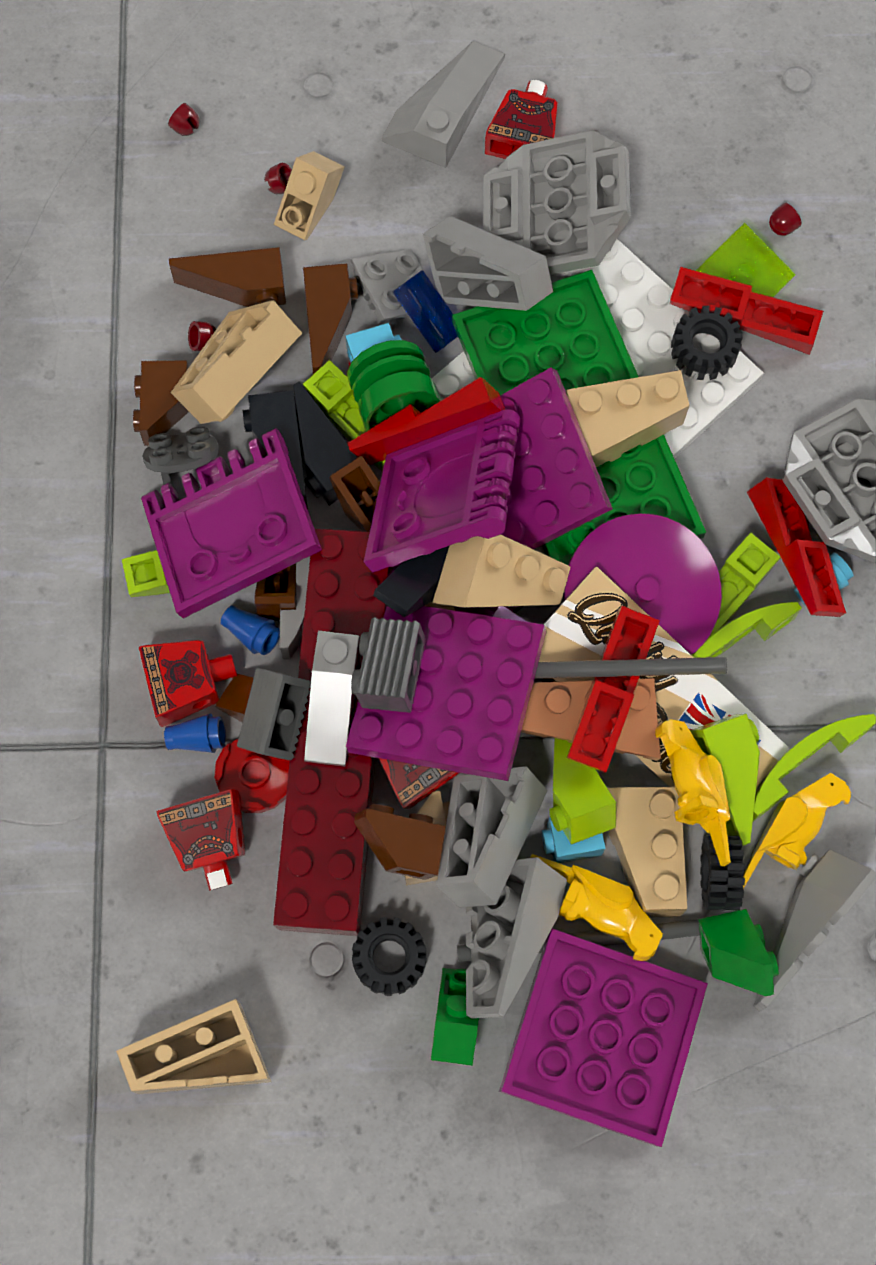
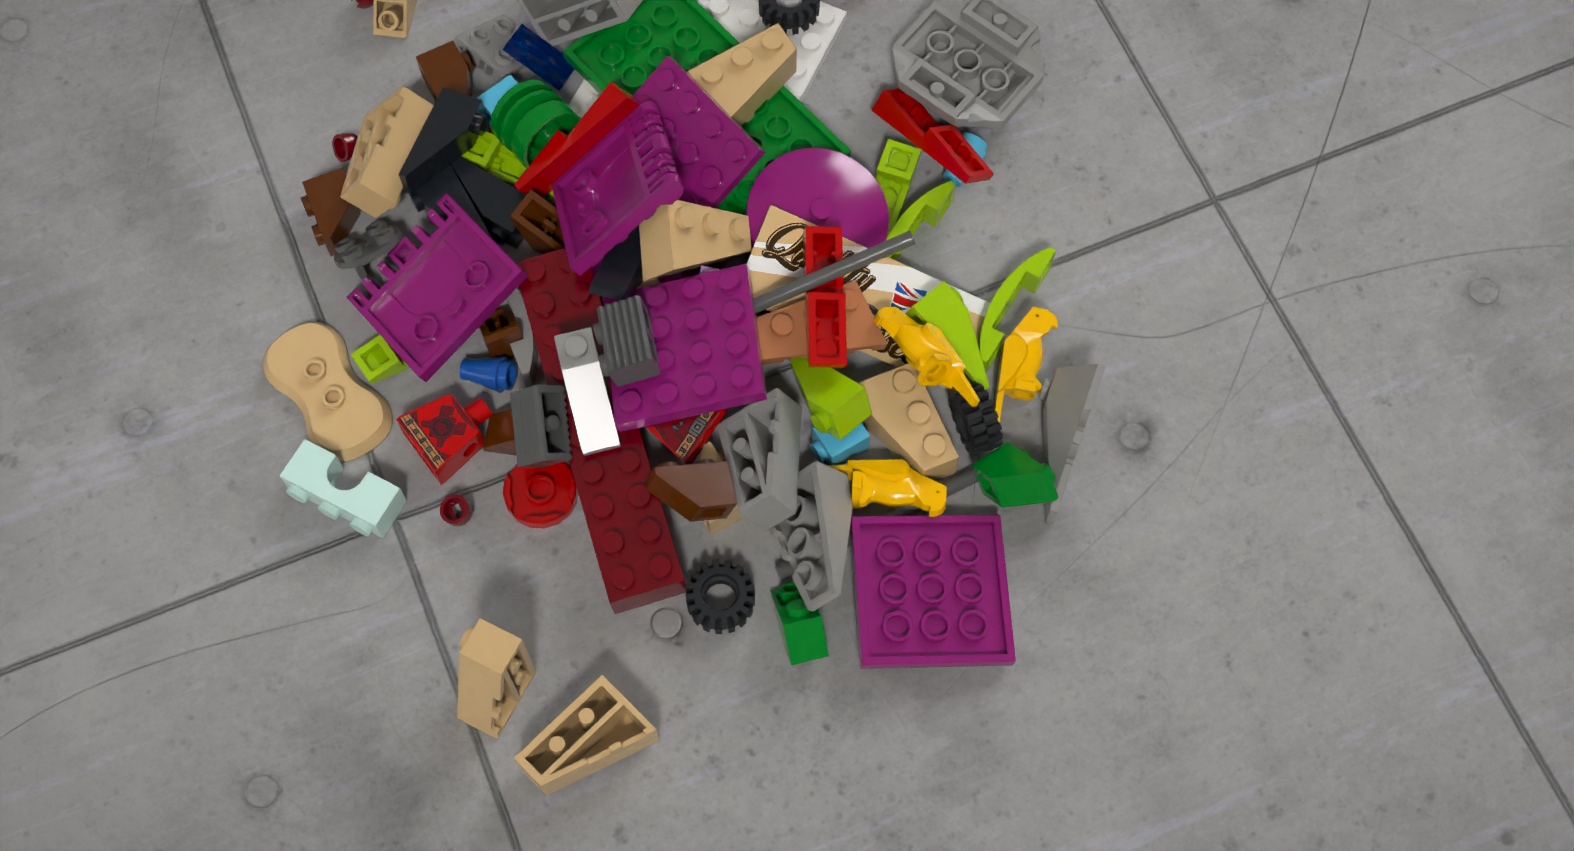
camera: 20 degrees left, 5 degrees down
(82, 724) = (368, 506): none -> light aqua arch
(92, 612) = (338, 408): none -> tan plate
(126, 957) = (491, 677): none -> tan wedge
(157, 763) = (449, 513): none -> dark red hinge
(198, 734) = (477, 476): blue cone -> none
(206, 834) = (519, 554): torso -> none
(237, 276) = (354, 86): reddish brown slope -> none
(297, 367) = (444, 138): none -> black slope

